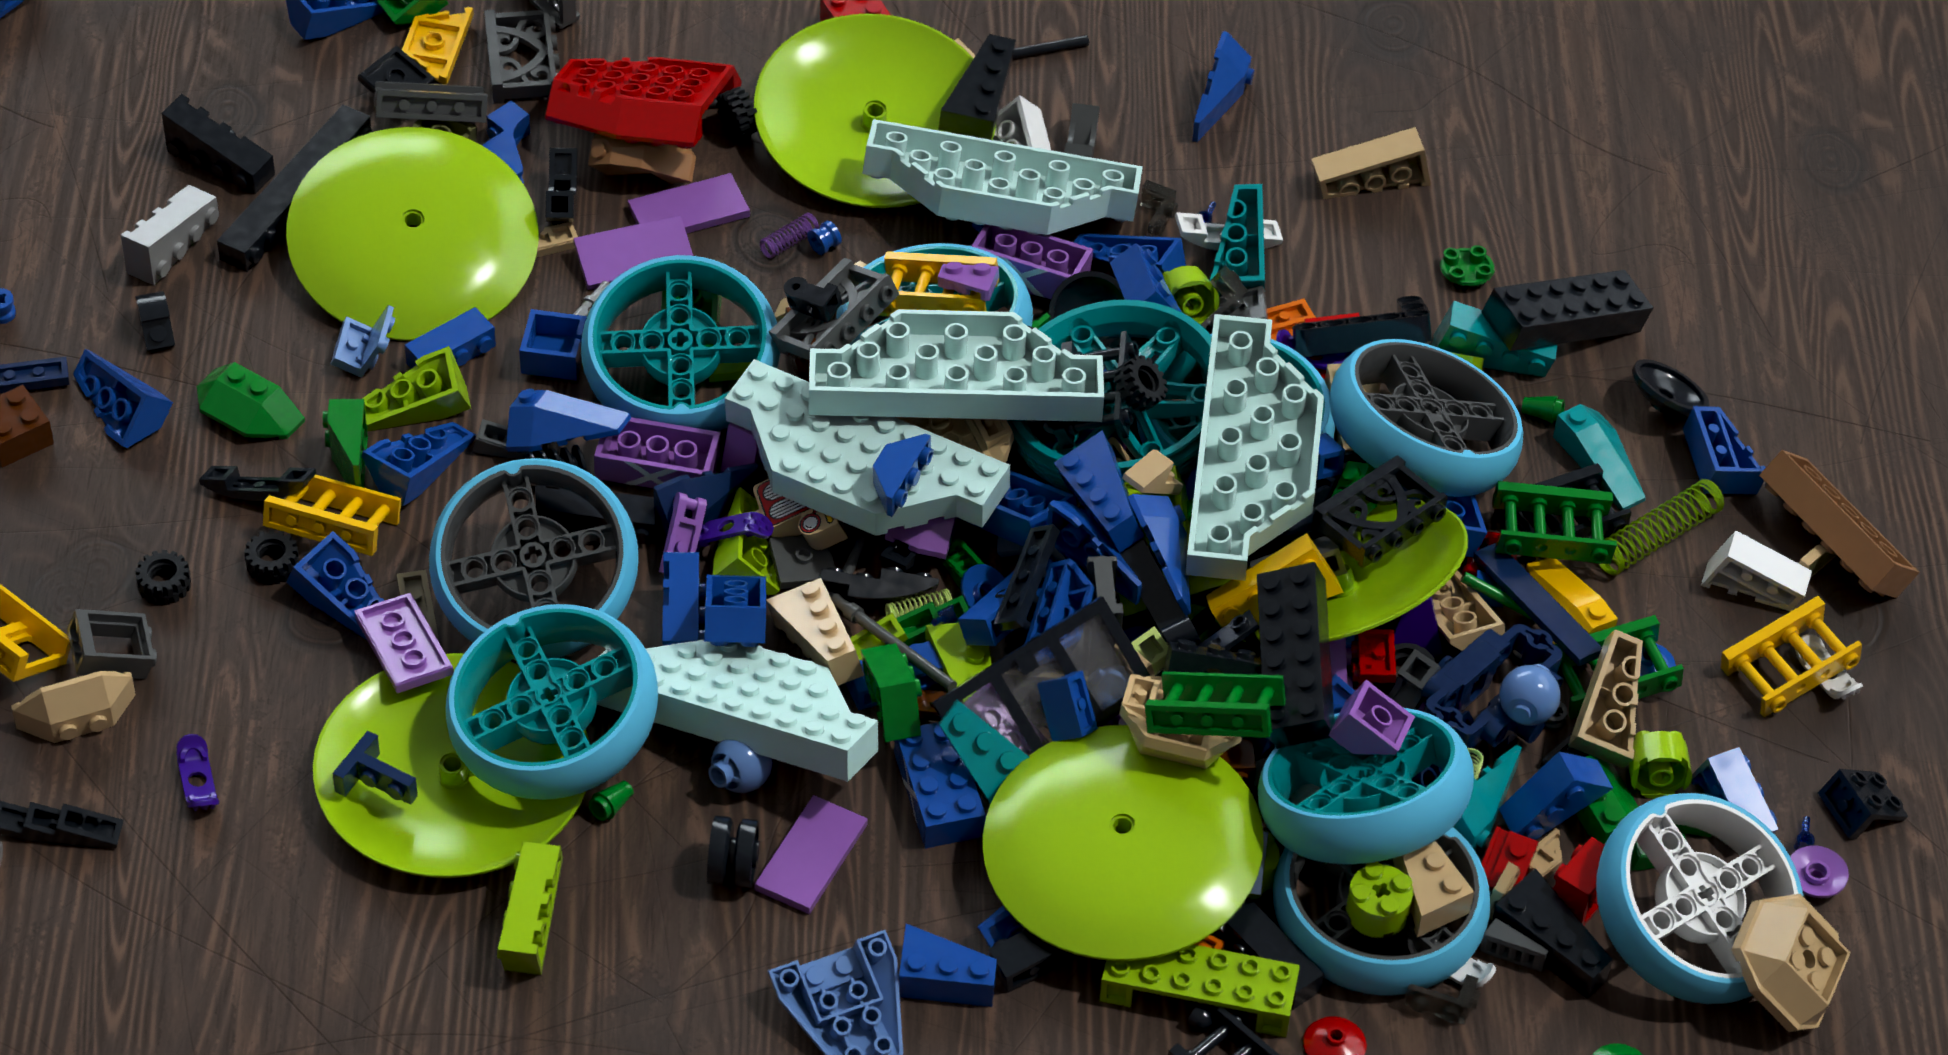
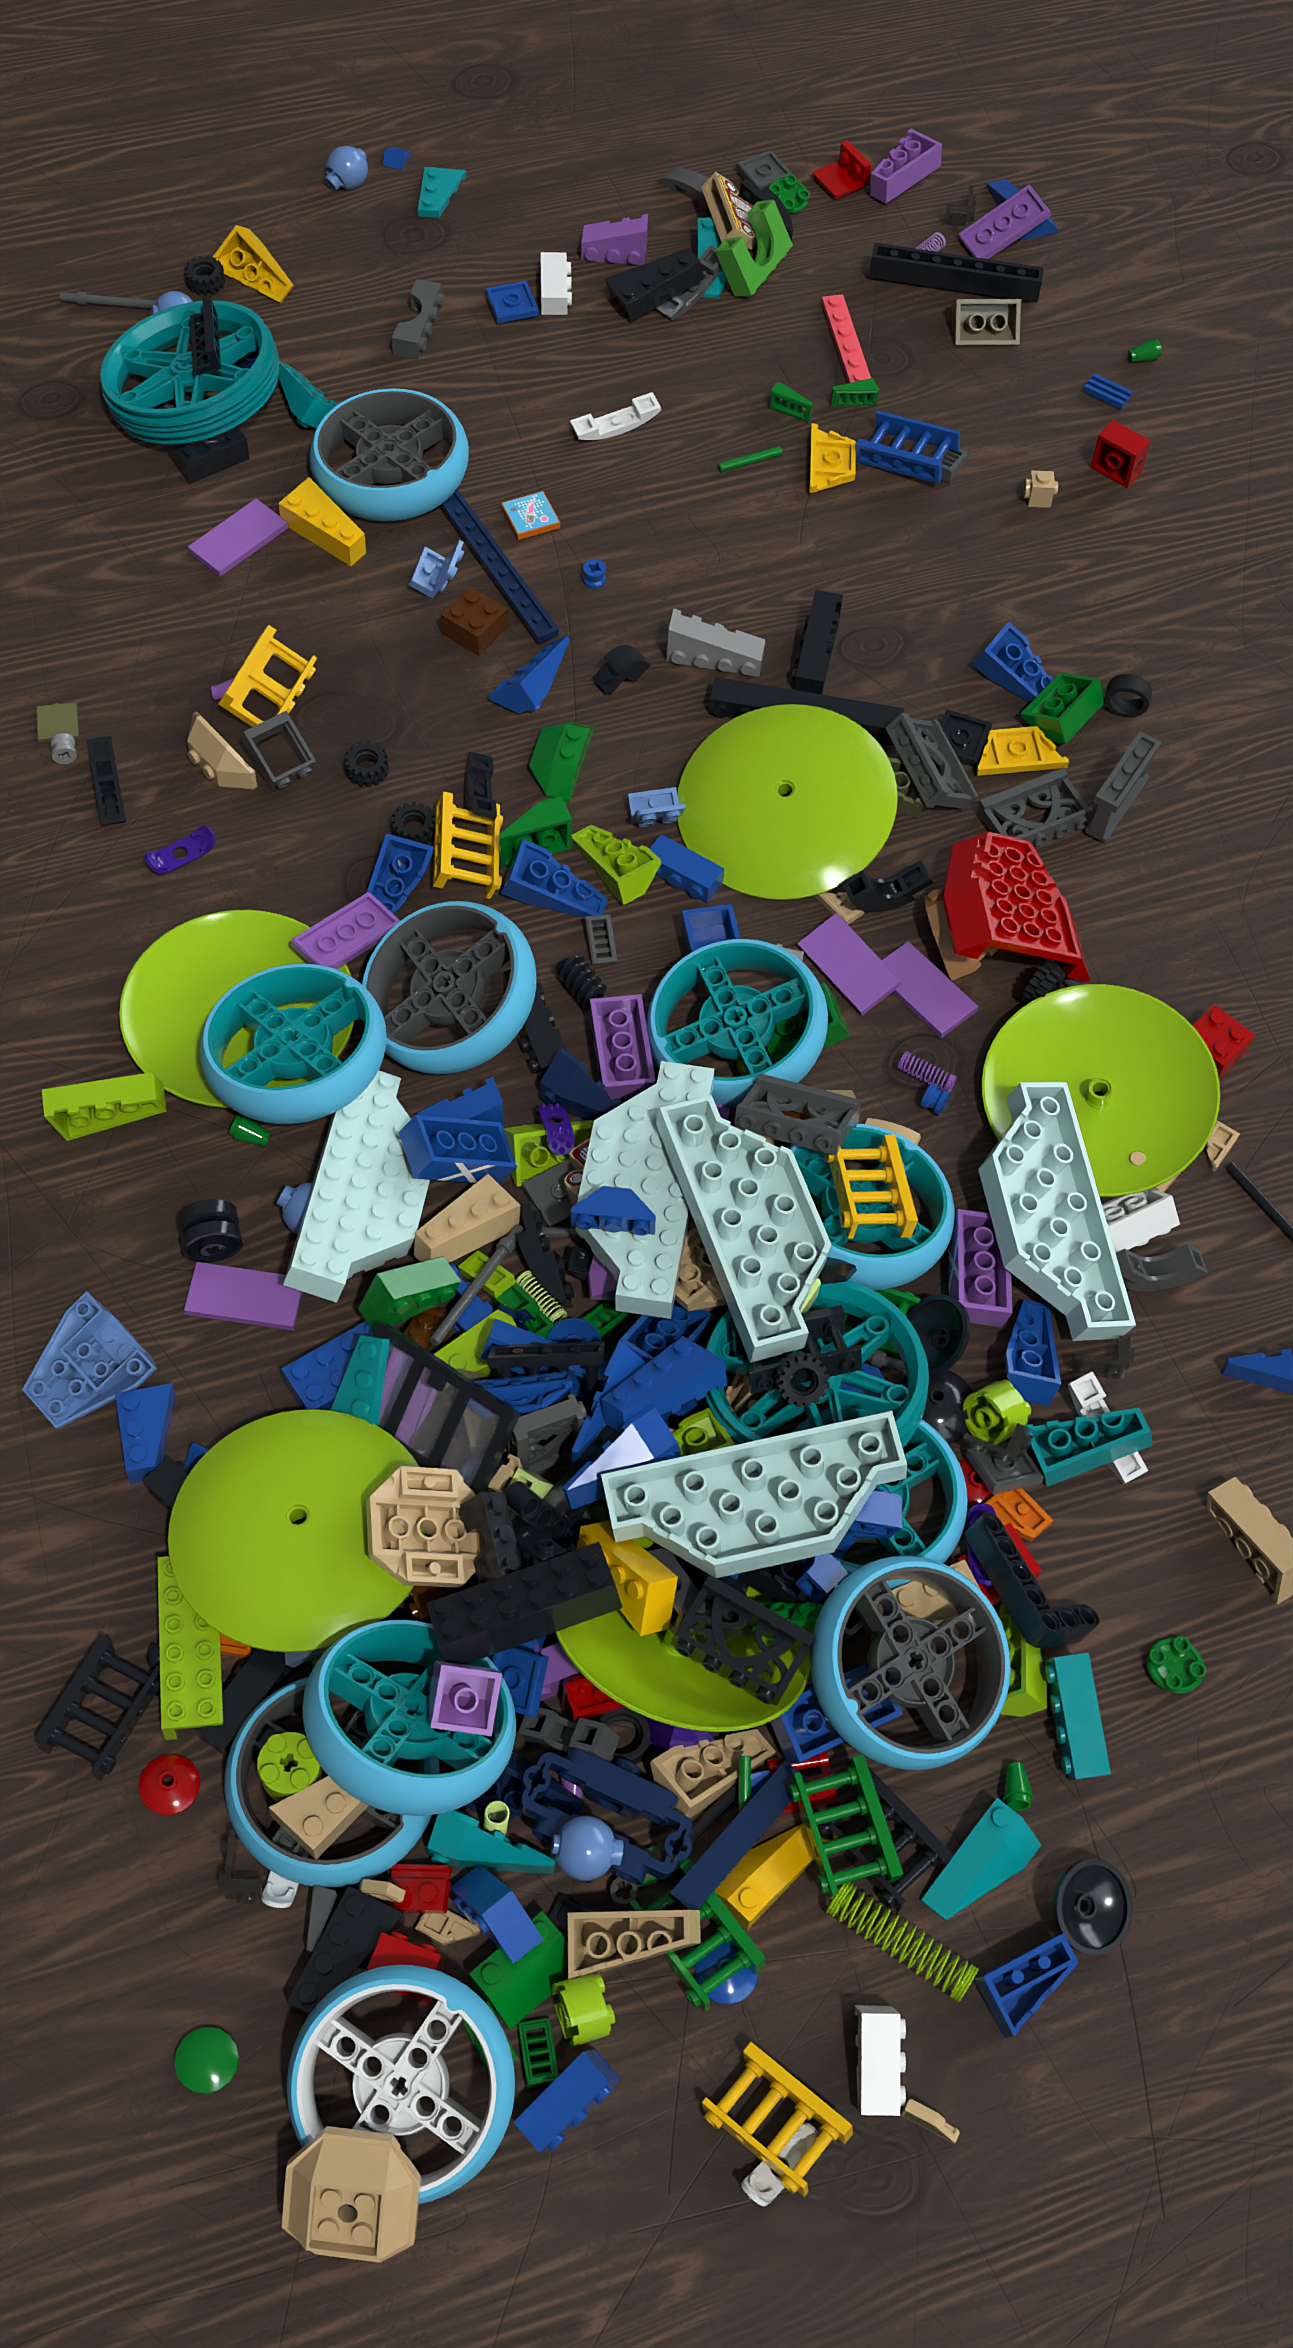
camera: 70 degrees right, 10 degrees up
(363, 766) = (200, 943): bracket -> none
(506, 129) = (915, 835): blue arch -> none
(551, 417) = (616, 962): blue wedge -> none
(683, 531) = (534, 1092): medium lavender plate -> none
(812, 299) = (794, 1092): black leg -> none
(963, 278) = (877, 1206): medium lavender wing -> none
(979, 93) = (1159, 1162): black wedge -> none
(1067, 706) = (420, 1436): blue panel -> none
(1141, 278) = (965, 1369): blue wedge -> none
(1153, 475) = (695, 1423): tan slope -> none
(1207, 215) = (1116, 1400): clear blue hand -> none
(1215, 704) = (393, 1552): green fence -> none
(1567, 310) = (1141, 1773): black brick -> none
(1805, 835) = (559, 2188): clear blue hand -> none
(1825, 865) = (505, 2191): medium lavender dish -> none
(1838, 525) = (973, 2131): medium nougat brick -> none
(1859, 799) = (621, 2242): black bracket -> none

